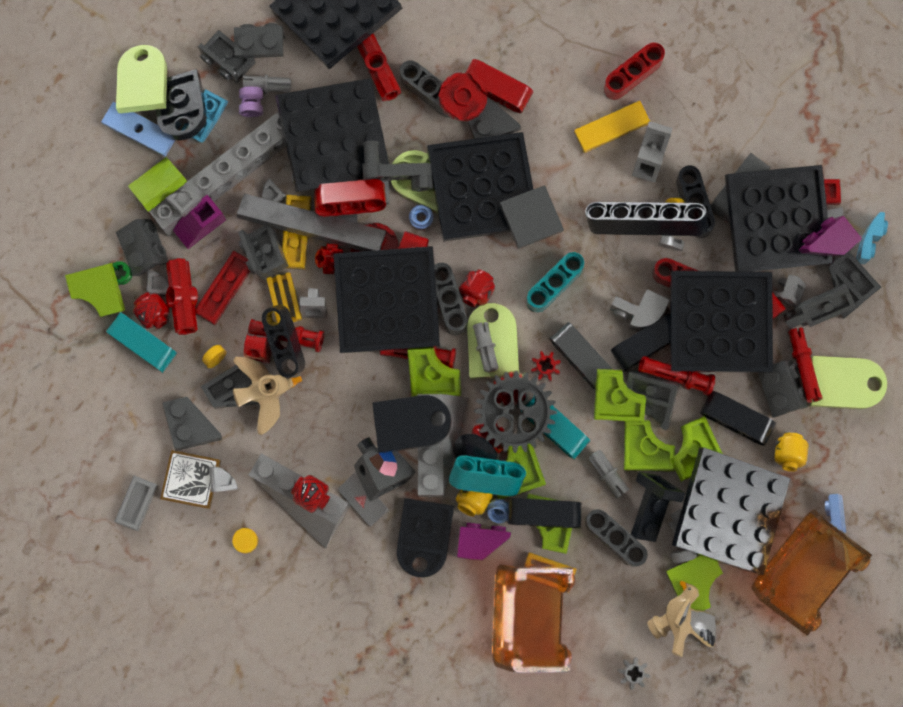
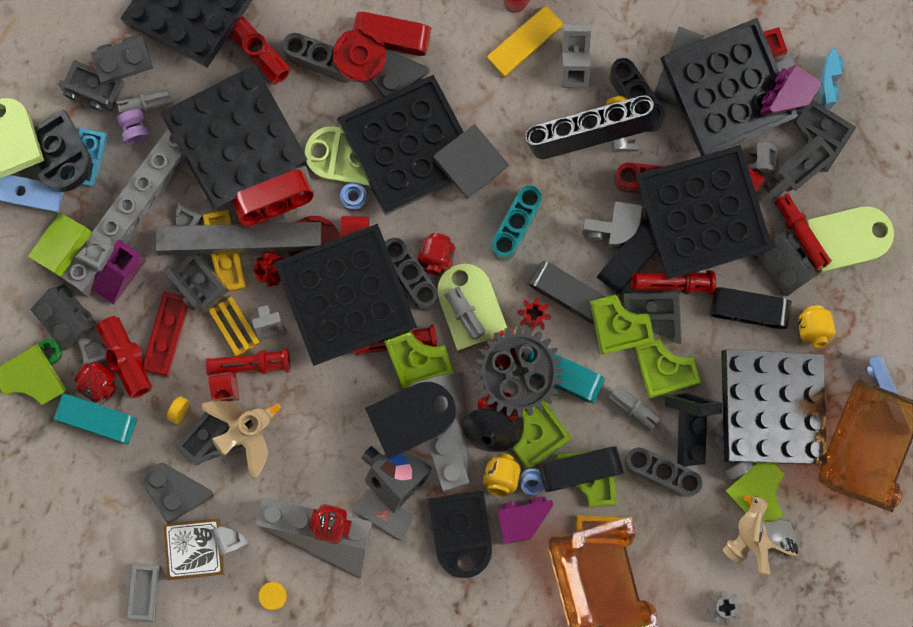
camera: 25 degrees left, 0 degrees up
(280, 353) = (249, 385): black beam -> none
(418, 173) = (337, 151): dark grey beam -> none
(487, 475) = (509, 448): teal beam -> none
(695, 435) = (712, 340): lime tile -> none

